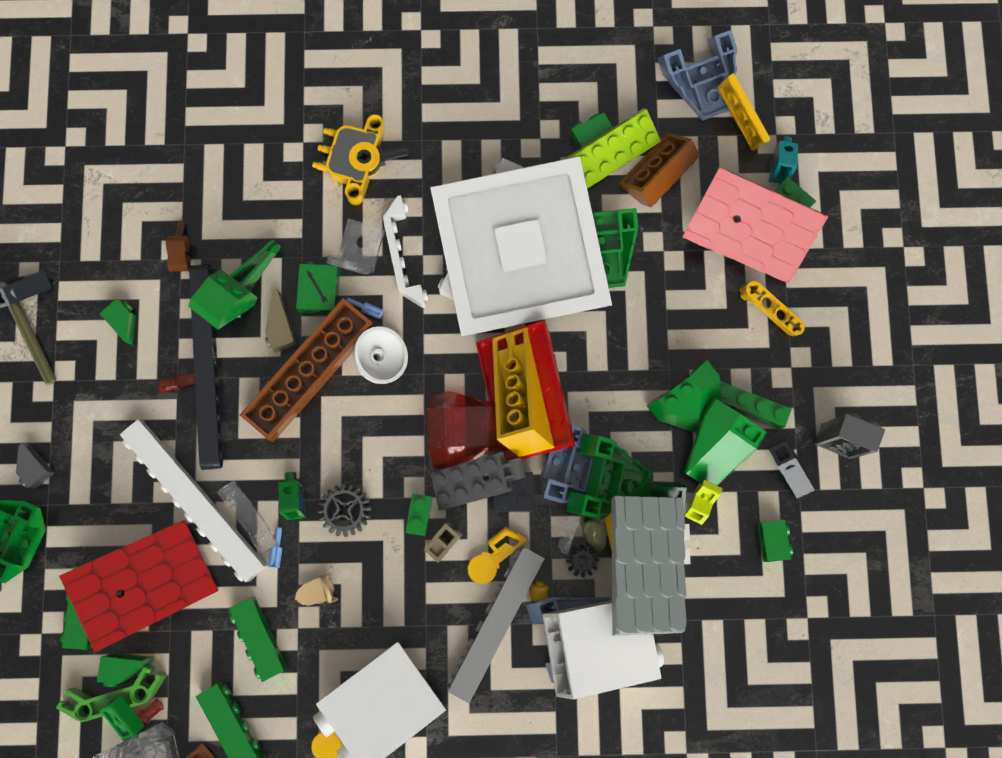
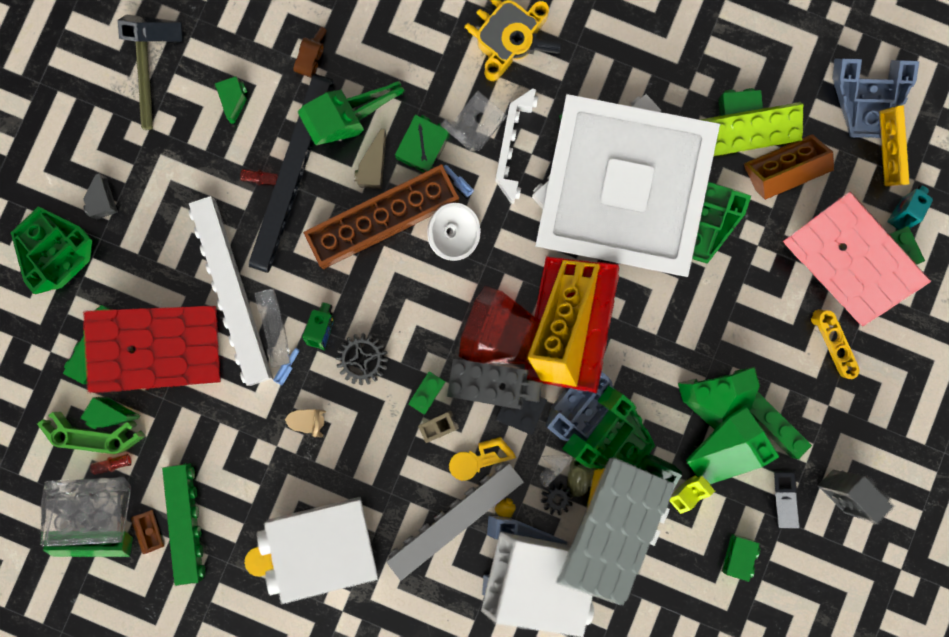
camera: 25 degrees right, 5 degrees up
(121, 717) = (90, 458): green slope -> none
(257, 639) = (237, 441): green brick -> none

